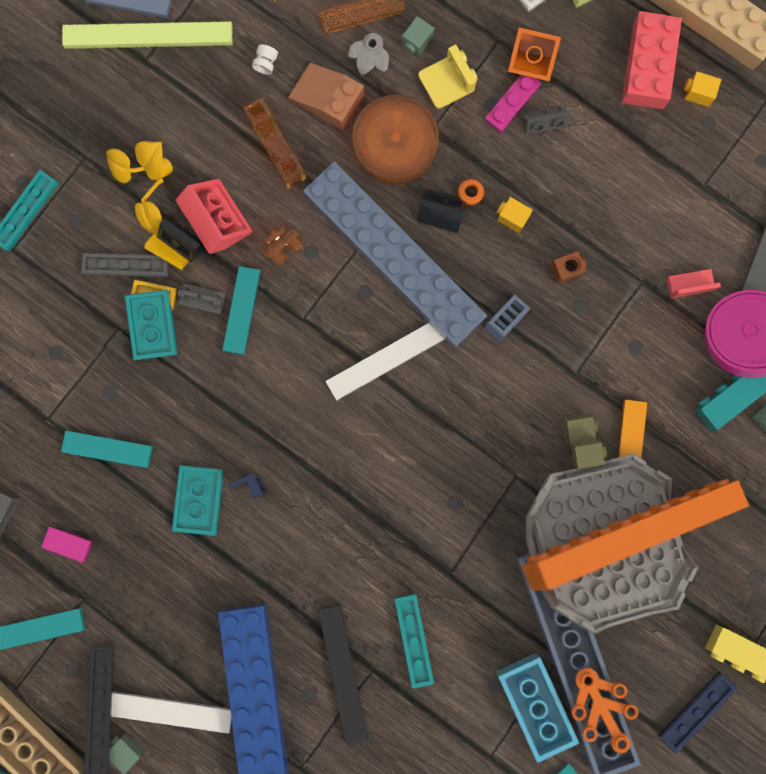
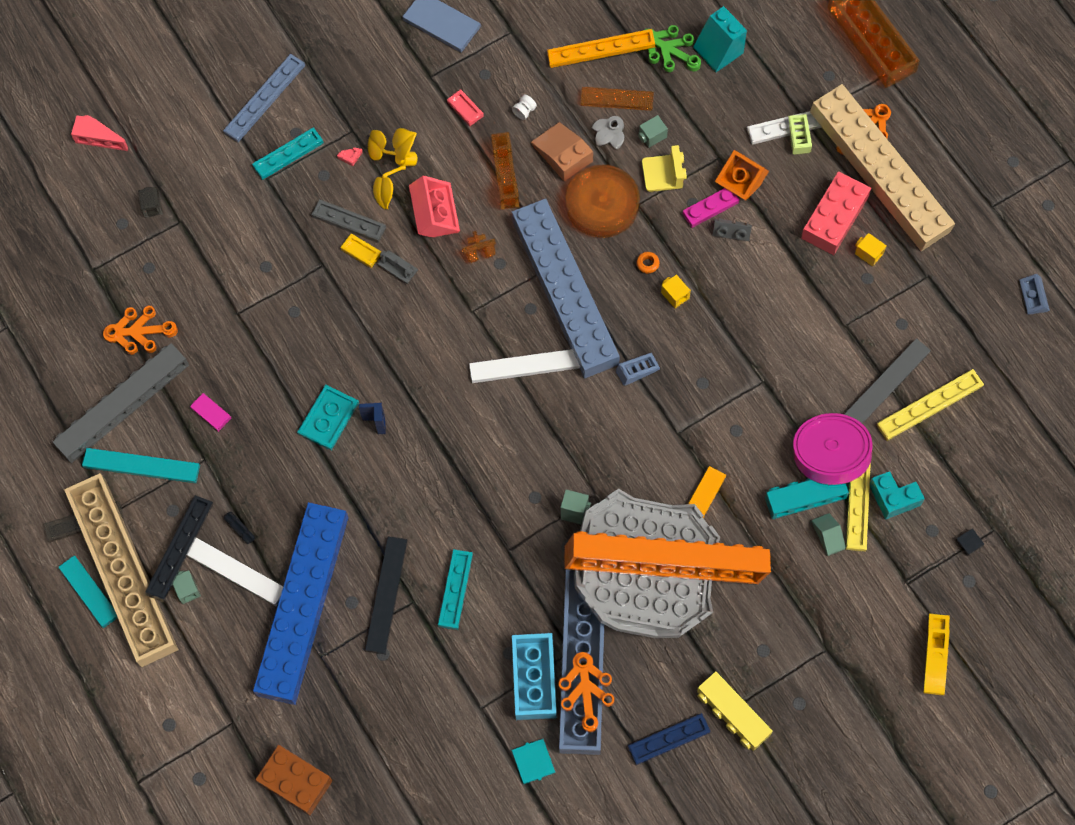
camera: 25 degrees right, 15 degrees down
(94, 187) = (350, 156): none -> coral tile
(107, 449) = (274, 352): teal tile -> none
(147, 35) = (440, 59): yellowish green tile -> none
(151, 324) = (349, 271): teal tile -> none
(154, 662) = (239, 527): none -> black axle
(162, 250) = (388, 221): yellow tile -> none
(180, 240) = (399, 216): black panel -> none
(199, 83) = (465, 107): none -> coral tile
(241, 310) = (425, 287): teal tile -> none
(441, 211) = (617, 268): black panel -> none
(507, 505) = (574, 506): none -> sand green brick
(562, 274) = (703, 339): dark orange brick -> none
(581, 437) = (659, 481): olive brick -> none
(691, 283) = (802, 397): coral panel -> none

